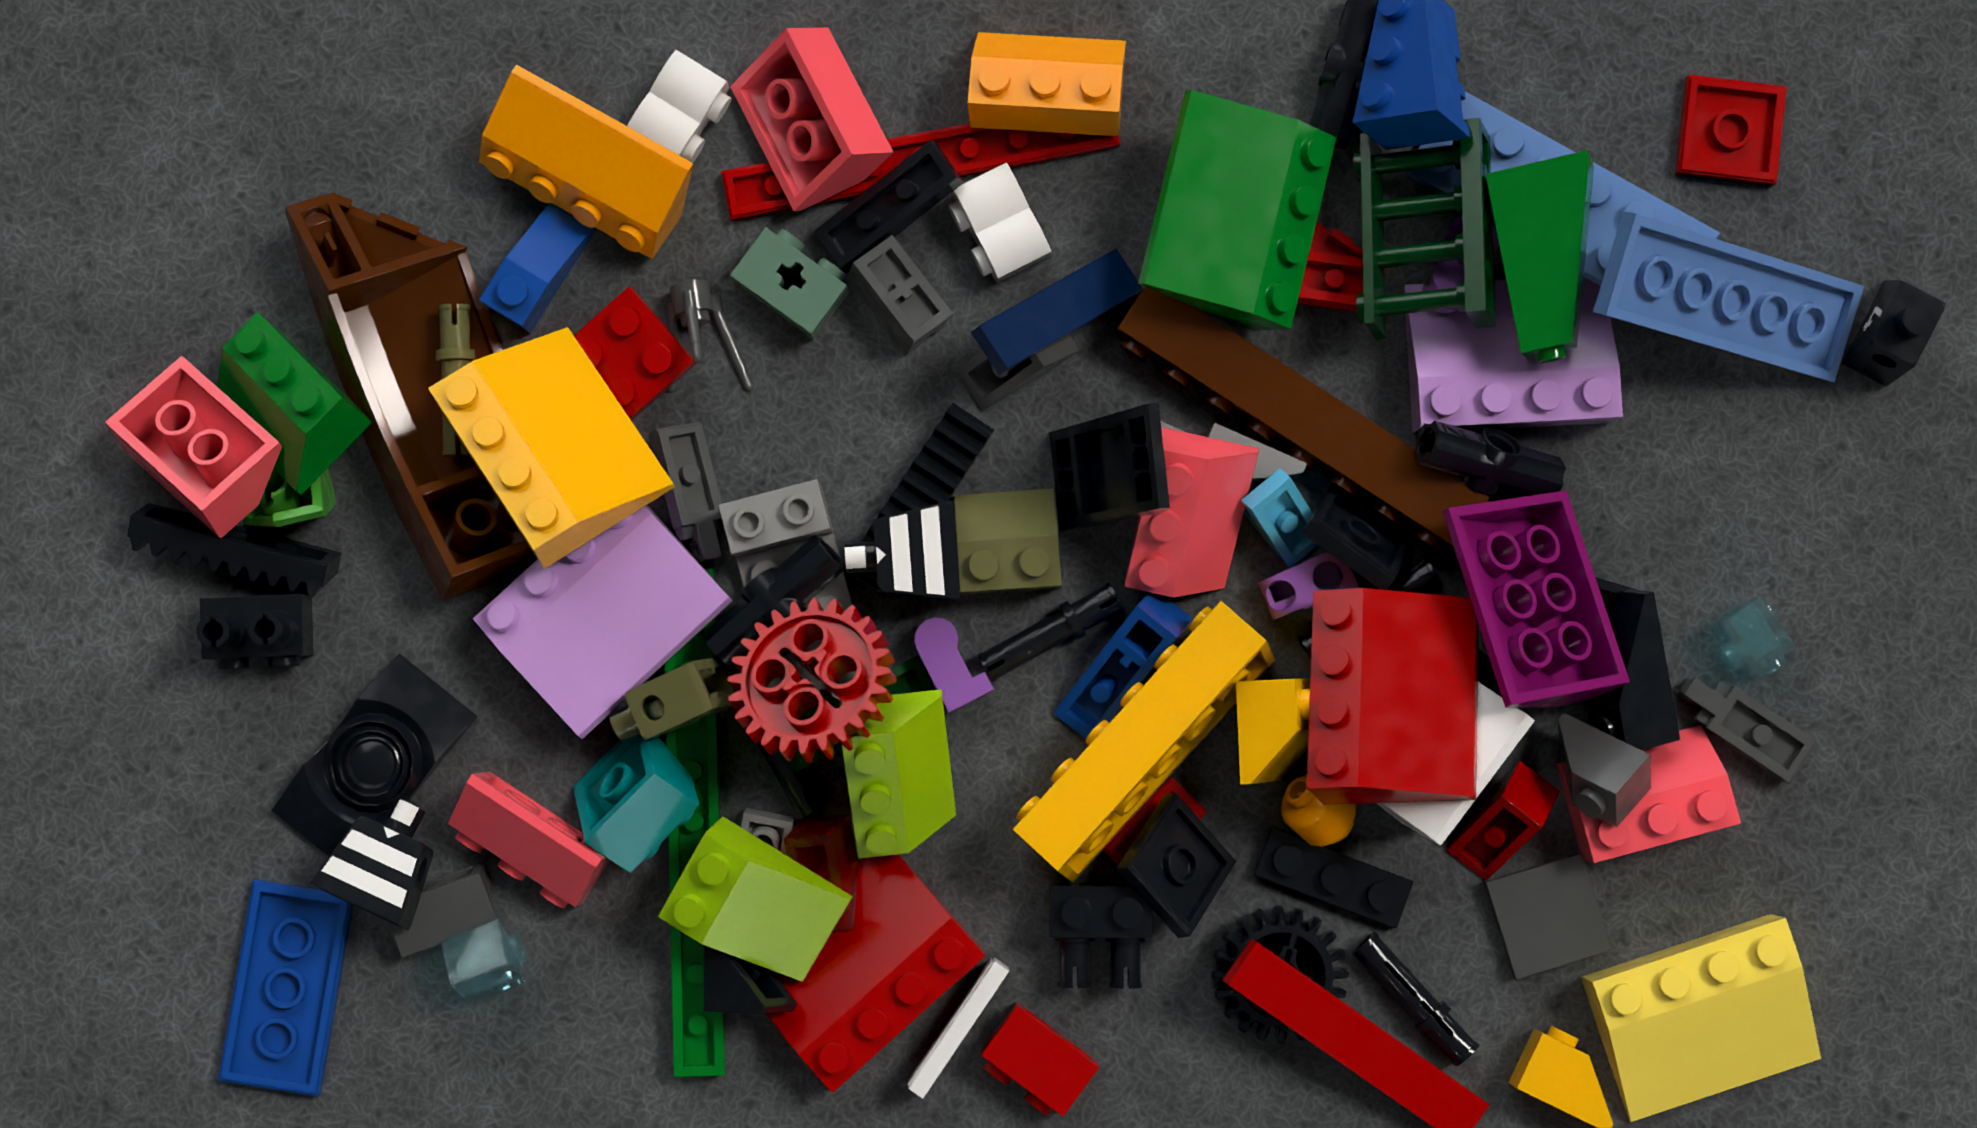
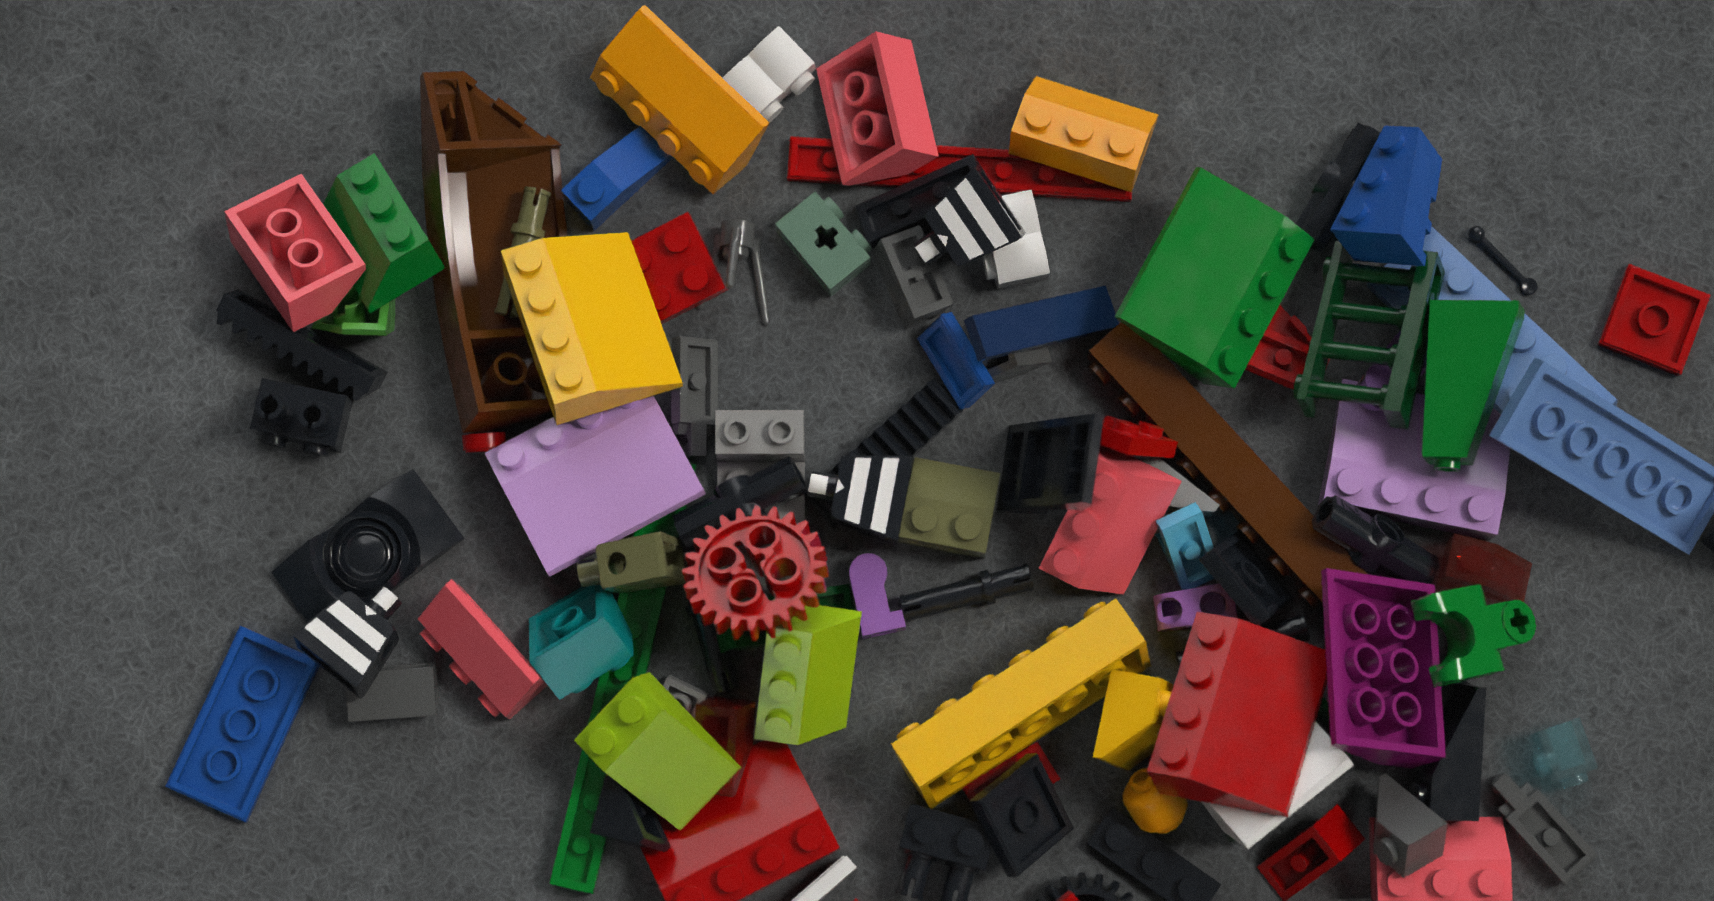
camera: 20 degrees right, 5 degrees down
(468, 604) = (482, 441): none -> red tile
(484, 961) = (417, 743): clear light blue brick -> none
(947, 218) = (969, 222): none -> torso
(971, 376) = (955, 360): none -> blue tile
(1122, 663) = (1021, 630): blue slope -> none
(1197, 415) = (1136, 439): none -> red wing
(1582, 128) = (1527, 285): none -> black hinge
(1614, 458) = (1475, 562): none -> clear red slope
(1624, 533) = (1473, 631): none -> green piece

